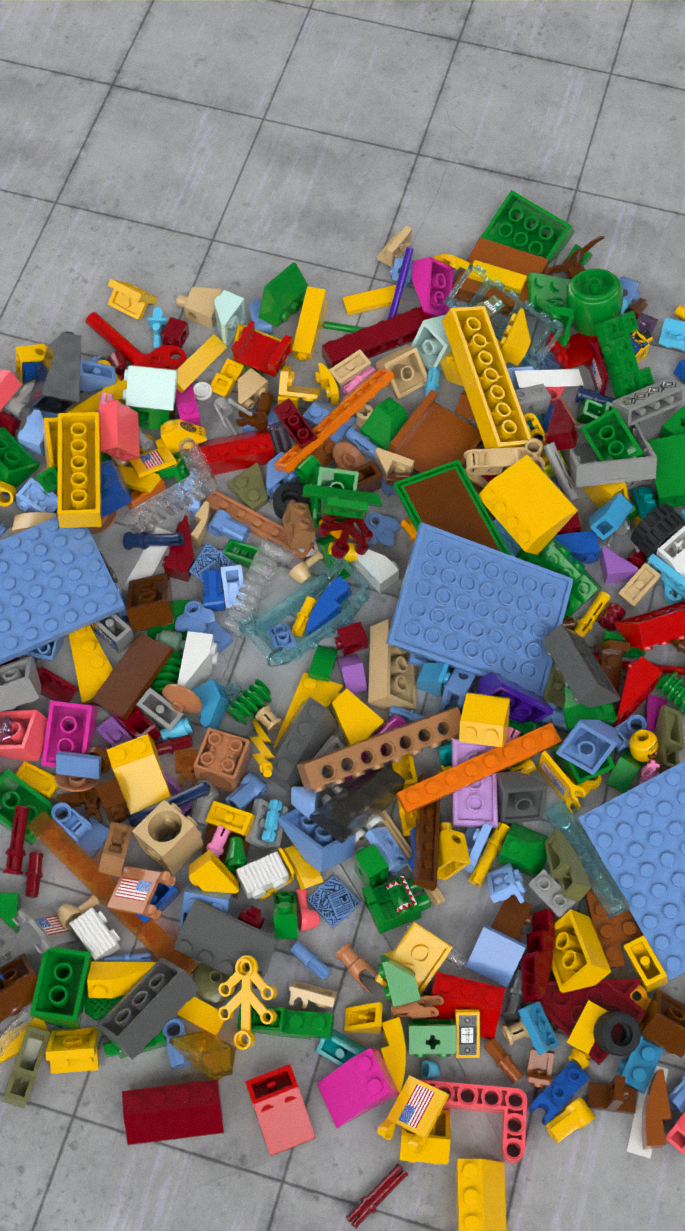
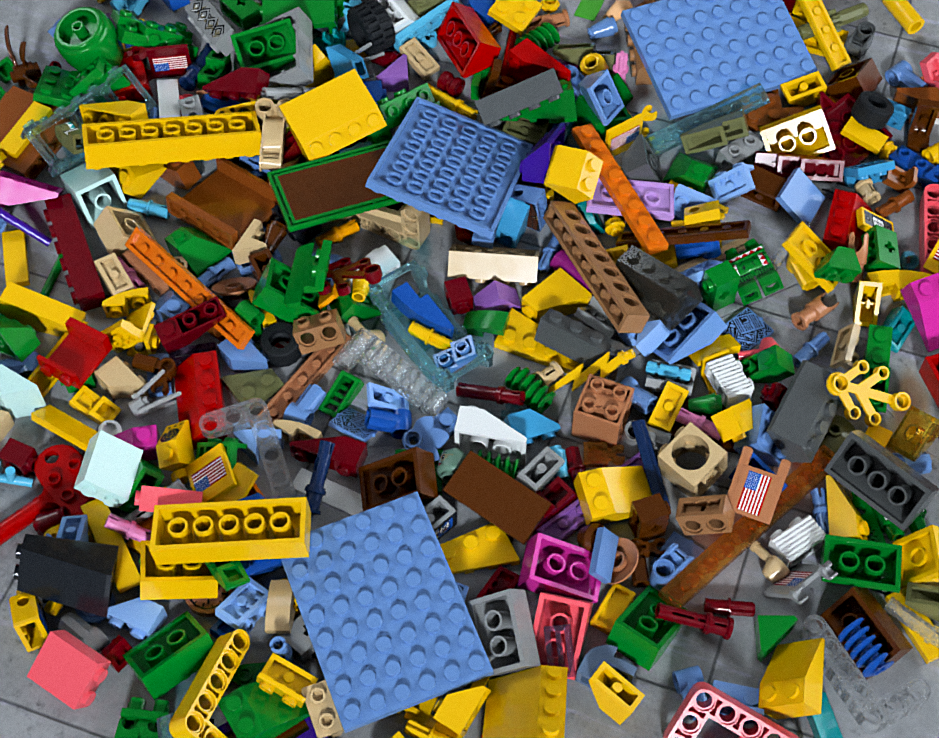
camera: 85 degrees left, 5 degrees down
(182, 699) = (533, 442): nougat dish -> none
(240, 674) = (499, 395): none -> dark red pin

